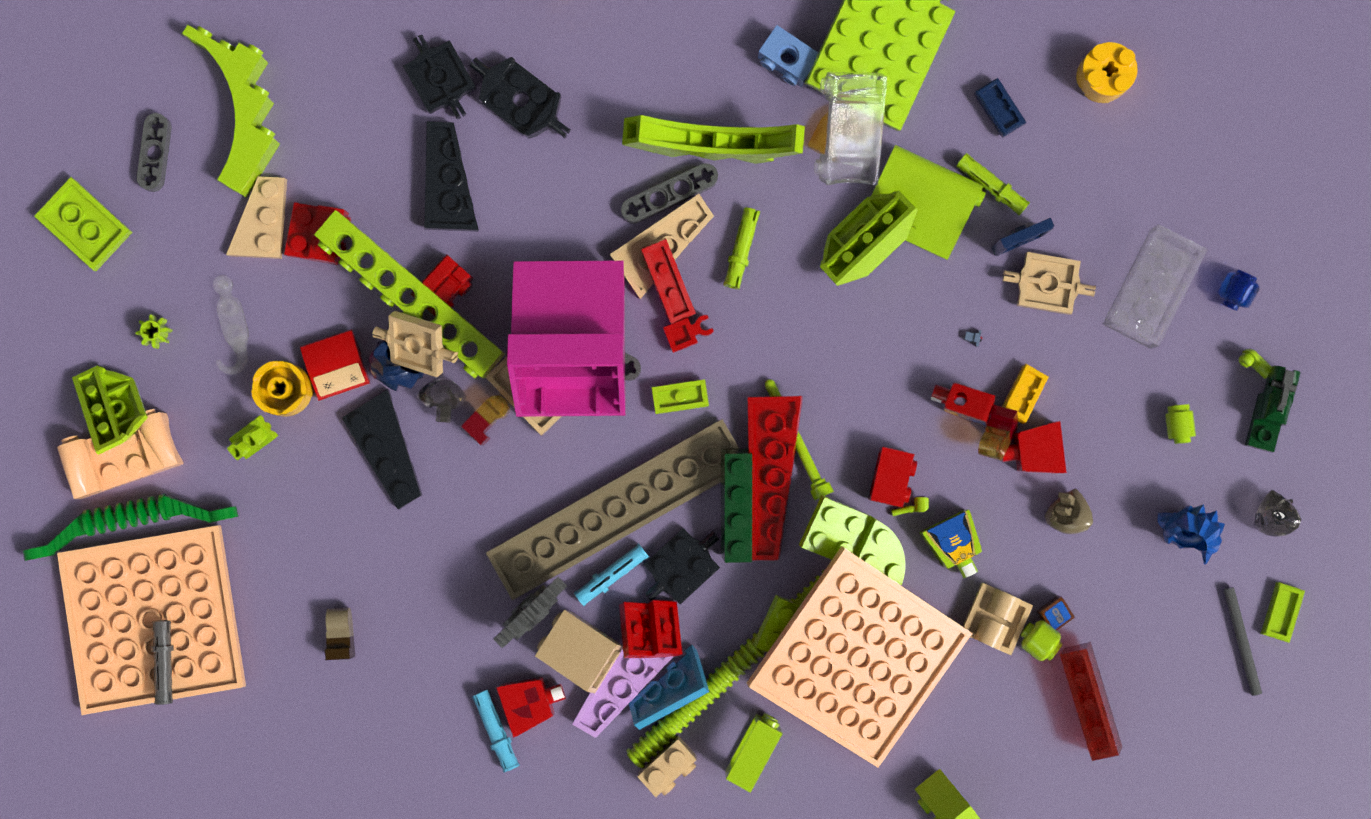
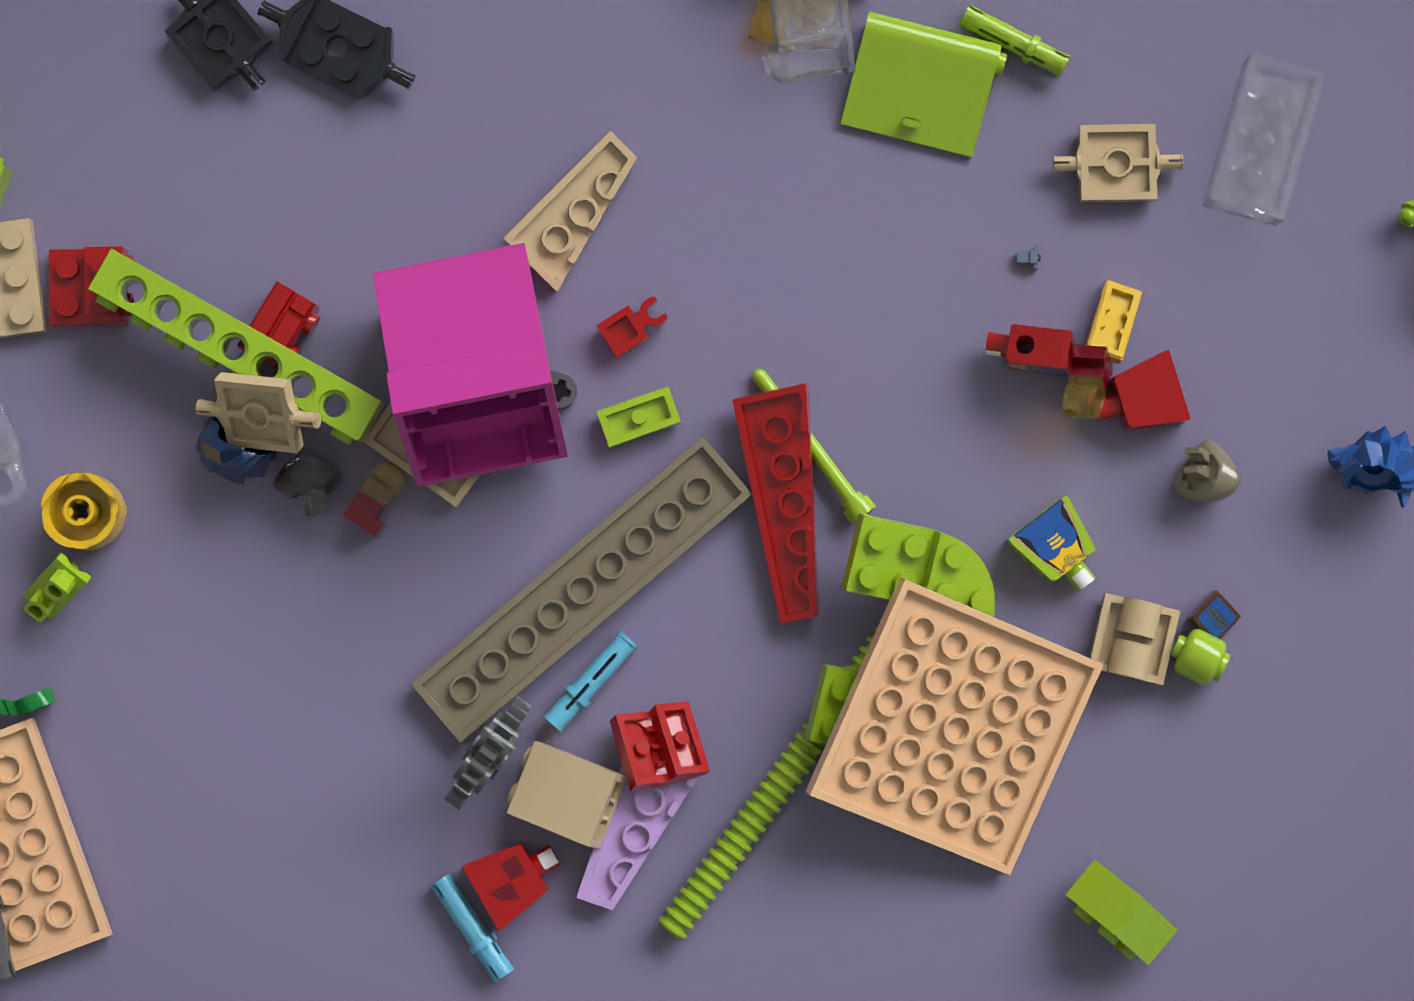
camera: 20 degrees left, 0 degrees up
(334, 364) = (150, 464): red slope -> none
(339, 634) = (229, 836): leg -> none
(382, 442) = (237, 560): black wing -> none
(446, 186) = (258, 192): black wing -> none
(667, 280) = (590, 259): red plate -> none
(667, 766) = (719, 929): tan brick -> none
(668, 191) = (573, 142): dark grey beam -> none
(678, 687) = (711, 819): dark azure wing -> none
(681, 566) = (686, 650): black plate -> none
(712, 142) = (615, 56): lime arch -> none
(736, 505) = (745, 551): dark green brick -> none
(740, 253) = (683, 204): lime pin -> none
(754, 751) = (834, 885): lime window -> none
(867, 237) = (855, 146): lime wedge -> none
(892, 477) = (952, 471): red brick -> none
(921, 504) = (999, 503): lime hand -> none
(1021, 236) = (1068, 104): dark blue plate -> none
(1091, 701) = (1284, 726): clear red brick -> none
(1180, 423) = (1335, 321): lime brick -> none
(1239, 290) = (1380, 122): clear blue head -> none

